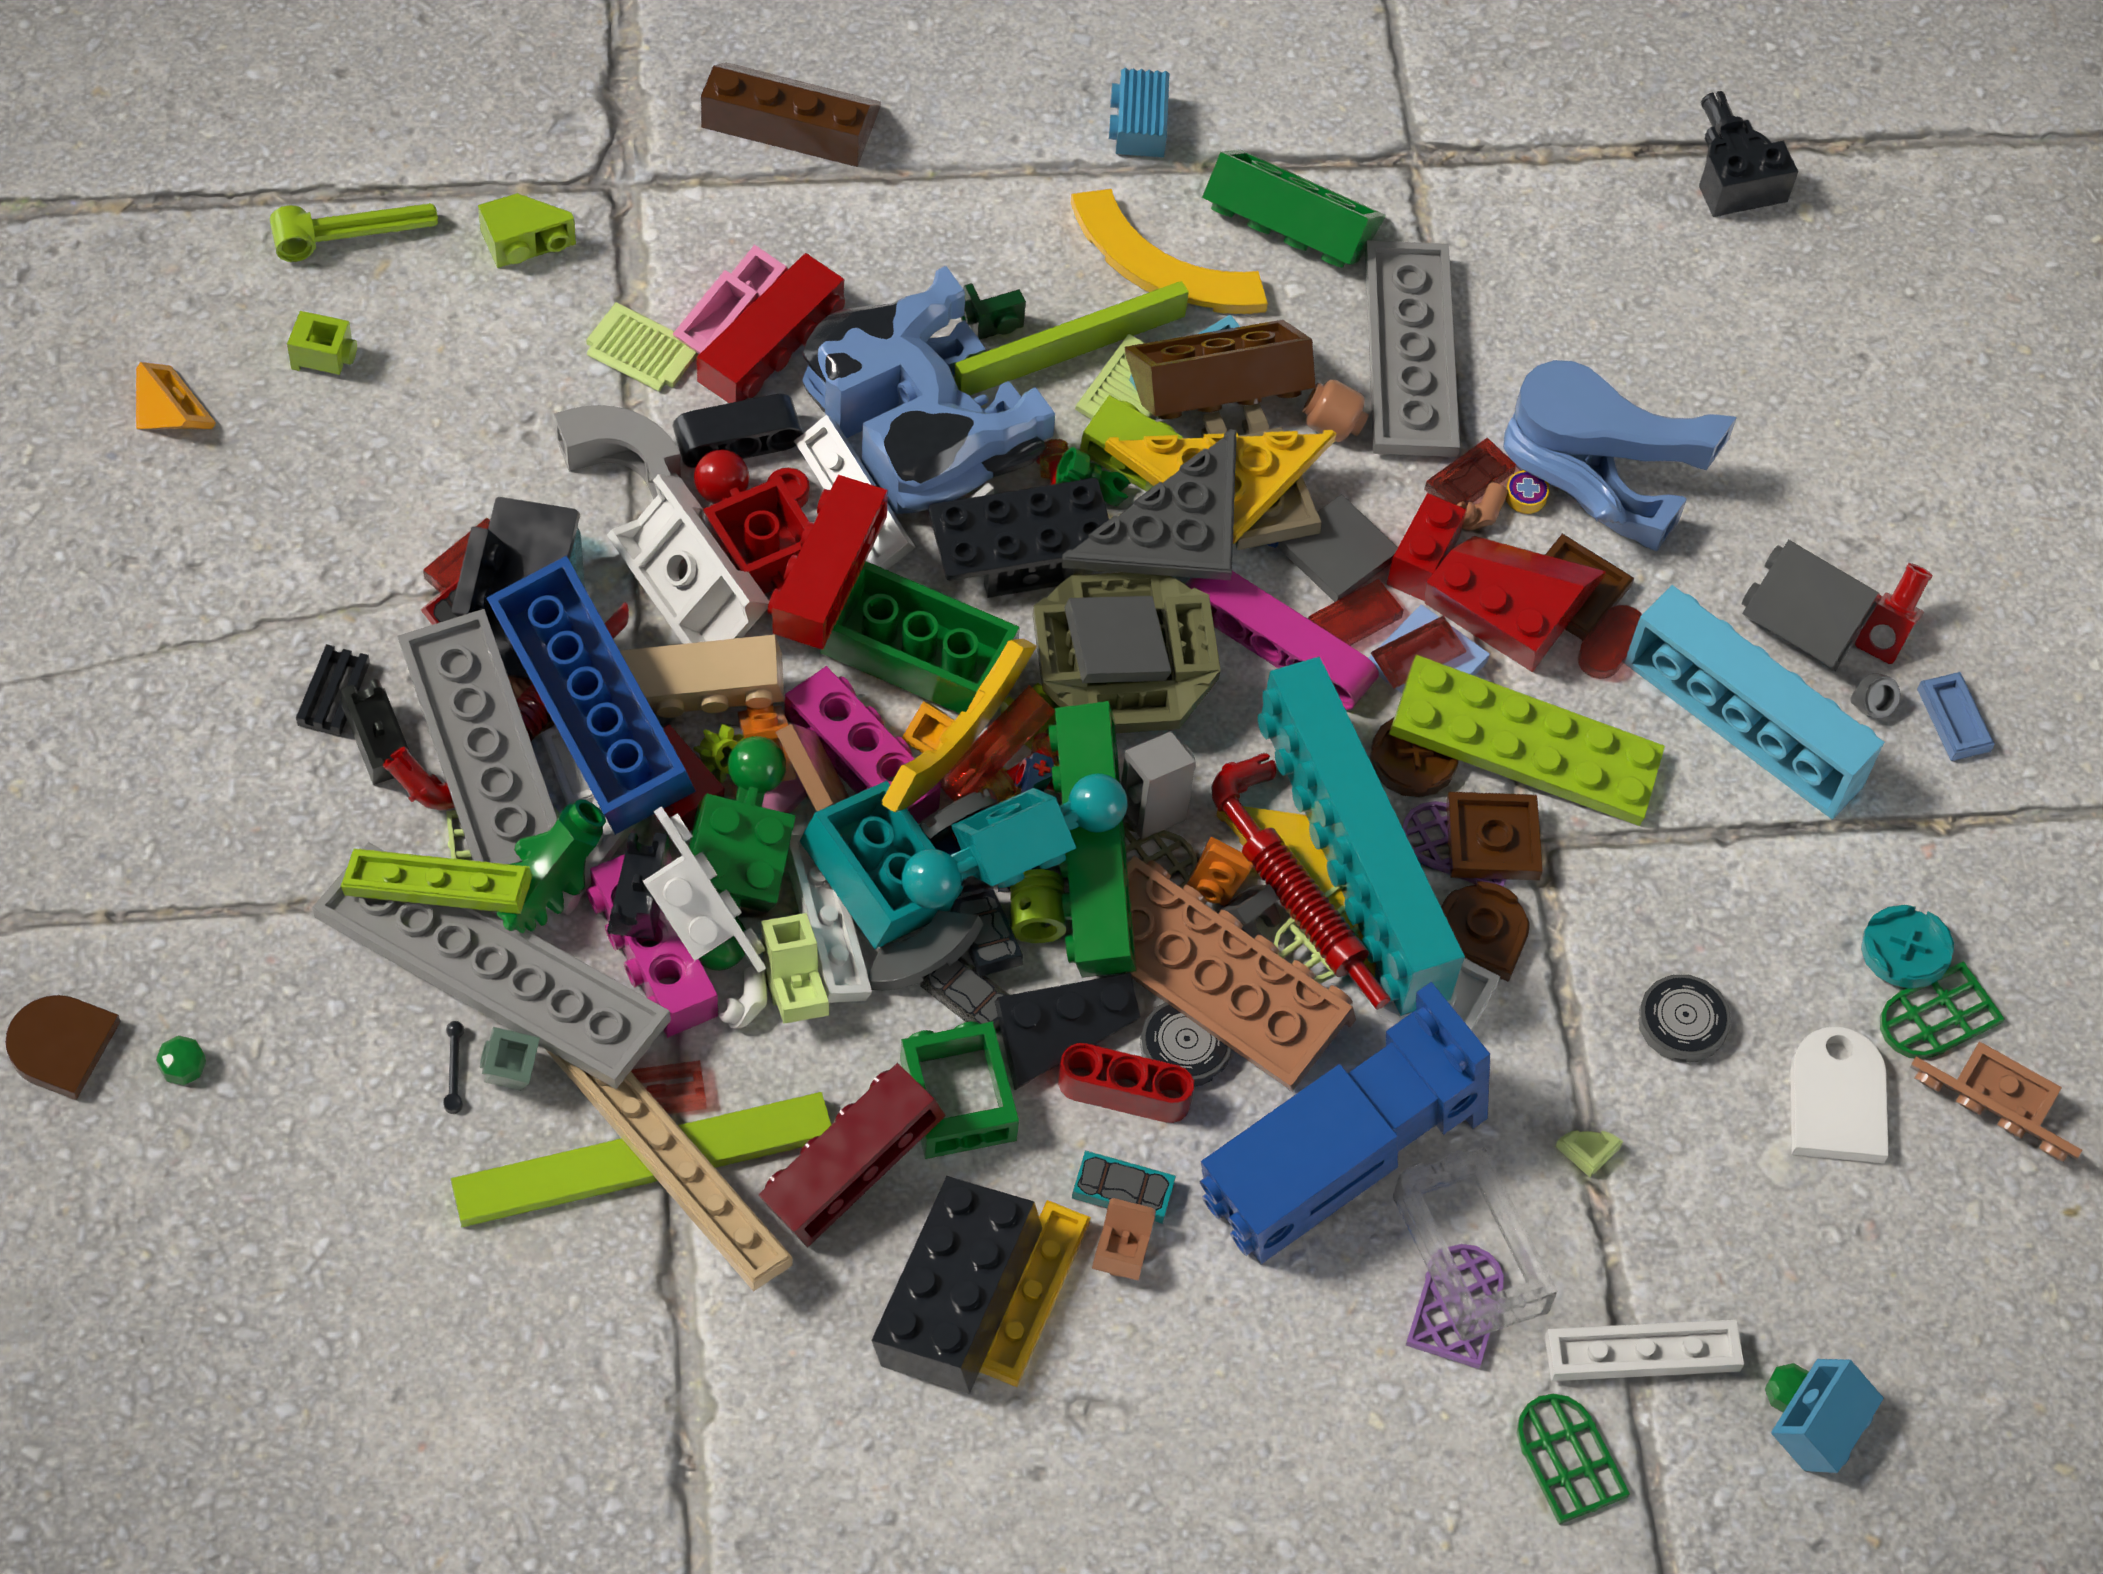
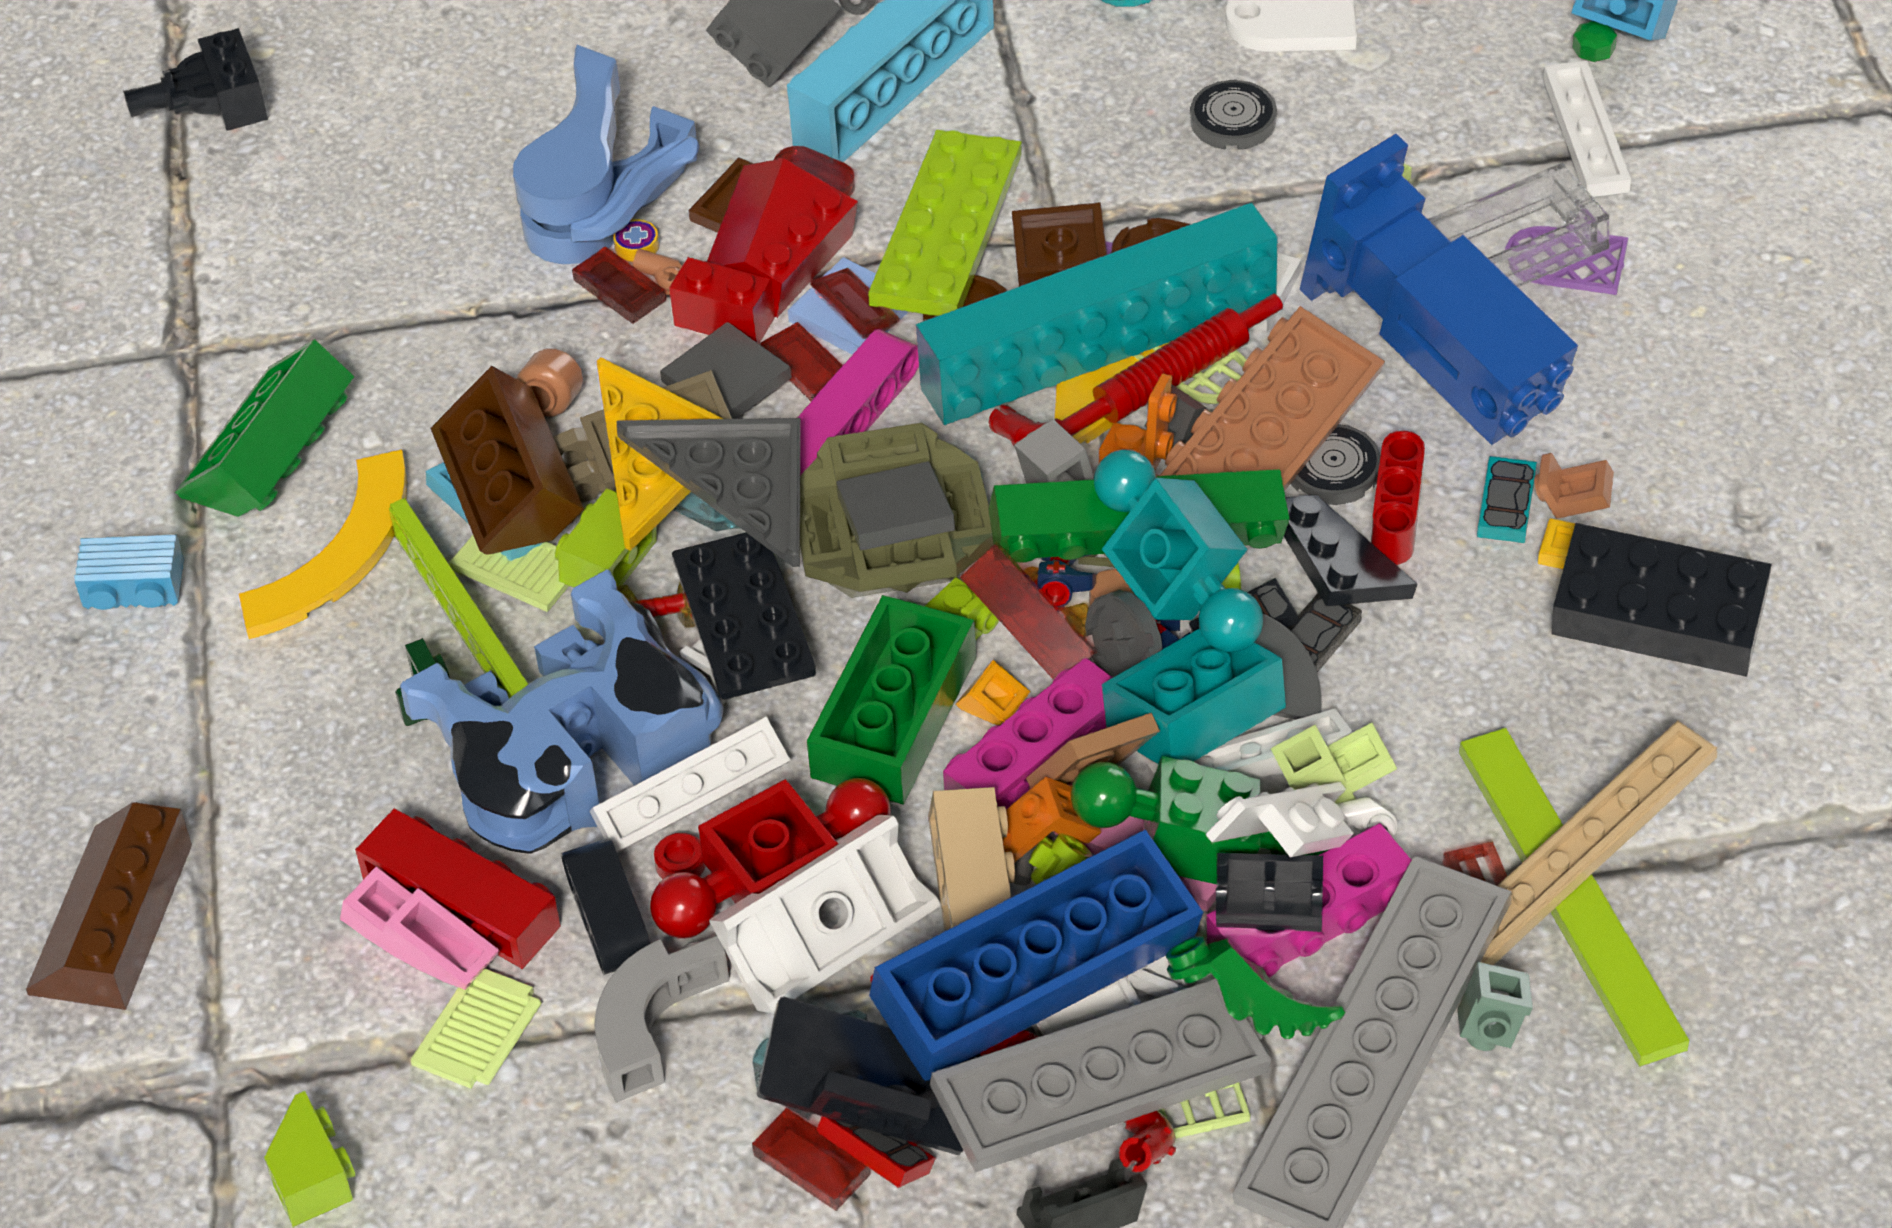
camera: 85 degrees left, 10 degrees down
(436, 881) = (1290, 1097): lime tile -> none
(452, 1101) = (1539, 1078): black hinge -> none
(828, 561) = (831, 746): red brick -> none
(851, 1154) = (1545, 688): dark red brick -> none
(926, 770) = (1057, 645): yellow tile -> none
(972, 1129) = (1446, 659): green window -> none
(1076, 466) = (653, 578): green piece -> none
(1411, 349) = (459, 329): light grey plate -> none
(1564, 1475) = (1722, 184): green window -> none

